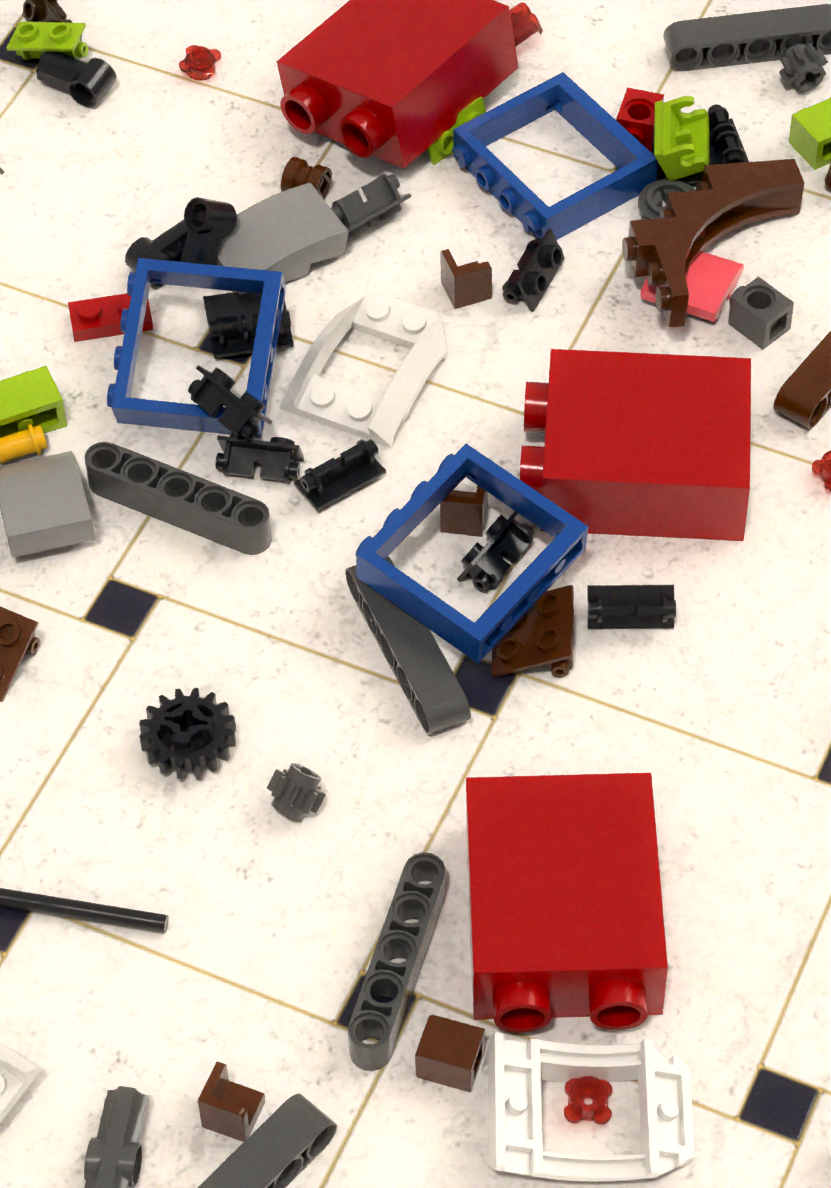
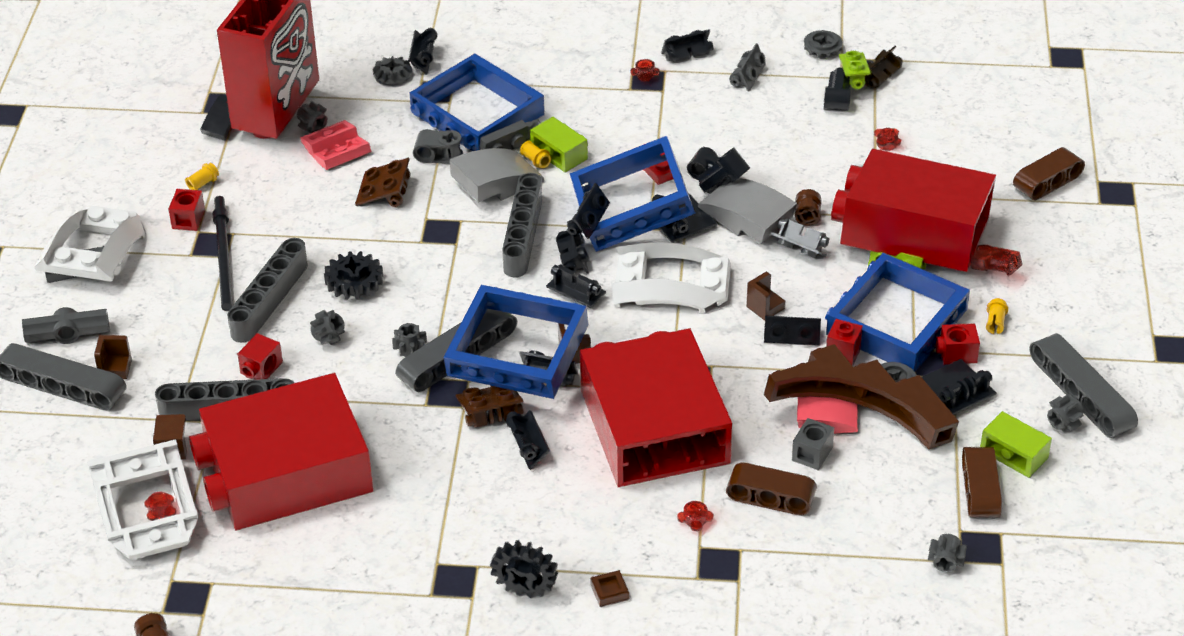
camera: 70 degrees right, 10 degrees down
(172, 870) = (267, 290): none -> dark grey beam
(322, 896) = (260, 357): none -> red brick
(368, 696) = (408, 339): none -> dark grey gear
(593, 225) = (847, 339): none -> red brick
(598, 71) = (997, 311): none -> yellow pin
(681, 138) = (942, 359): lime hinge -> none

